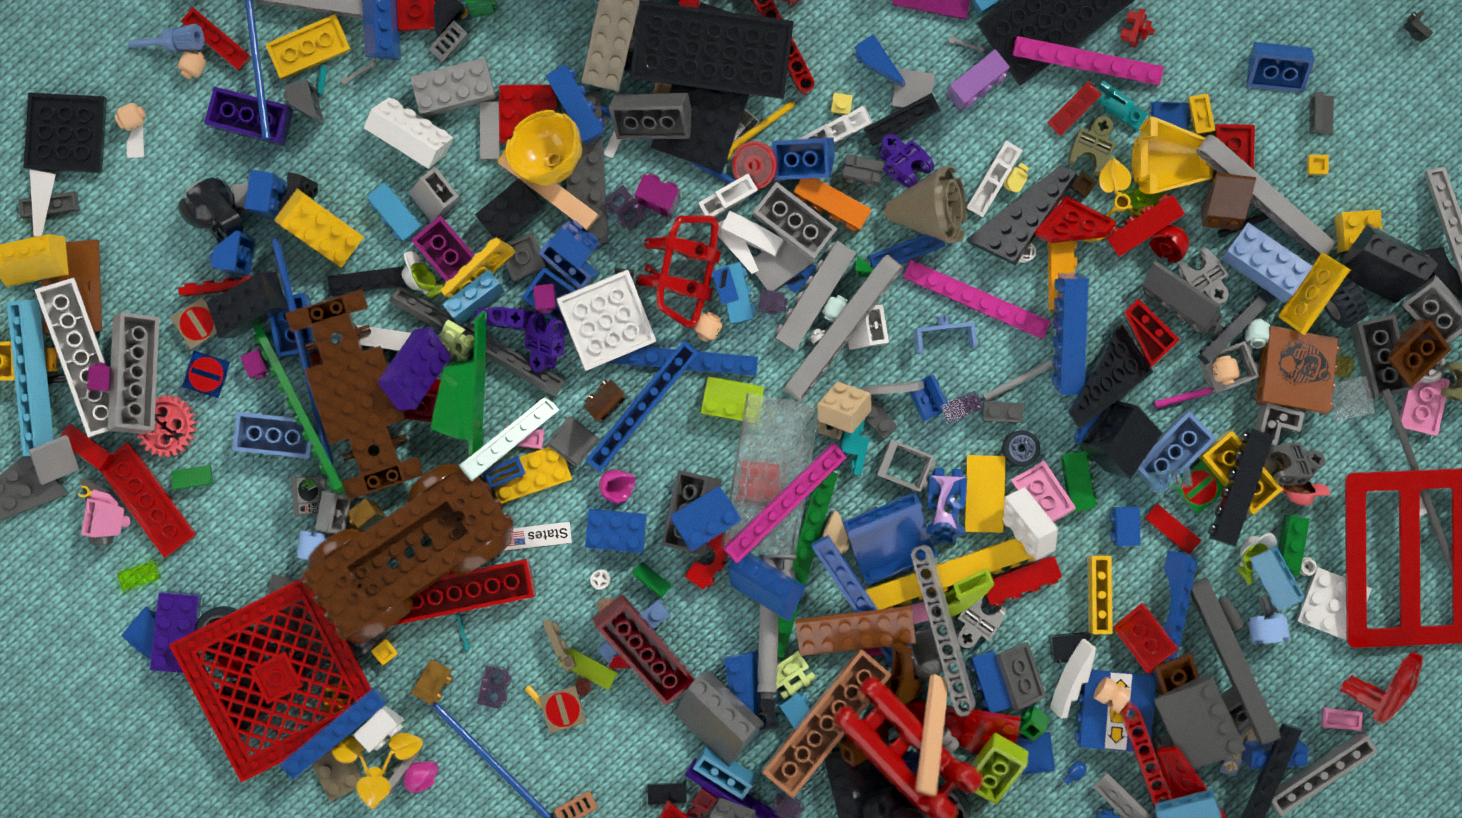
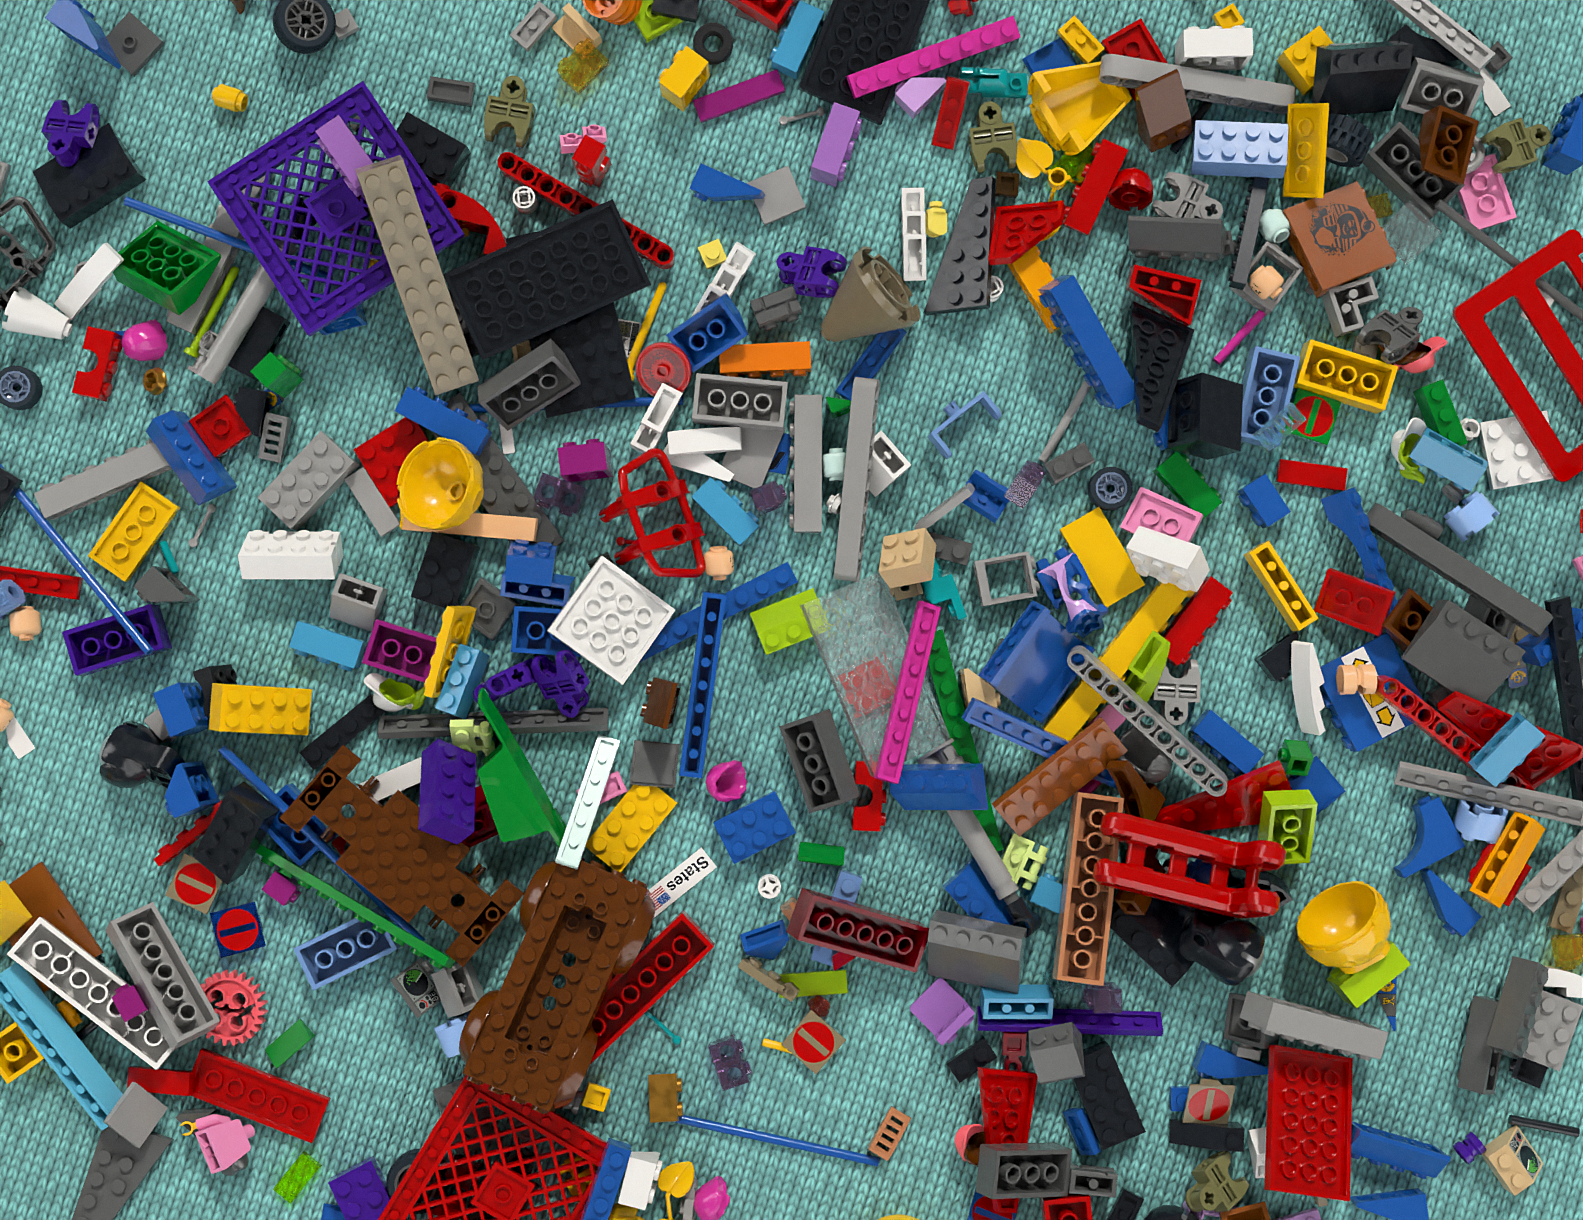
camera: 35 degrees left, 0 degrees up
(366, 514) = (491, 970): pearl gold brick -> none
(519, 466) = (616, 822): blue tile -> none
(545, 298) = (536, 637): magenta brick -> none
(573, 616) = (765, 941): none -> blue slope
(668, 745) = (942, 1011): none -> medium lavender bracket
(705, 518) = (838, 758): blue slope -> none
(725, 285) = (710, 510): blue sticker -> none
(902, 119) = (783, 231): black plate -> none
(932, 735) = (1204, 834): light nougat tile -> none
(948, 742) = (1216, 828): light grey wheel -> none
(976, 299) = (971, 366): dark pink plate -> none
(1021, 676) = (1253, 718): dark grey plate -> none
(1060, 80) = (917, 94): none -> lavender slope
(1075, 772) = (1367, 780): blue cylinder -> none
(1240, 487) = (1355, 390): black brick -> none
(1294, 179) = (1214, 48): none -> white brick

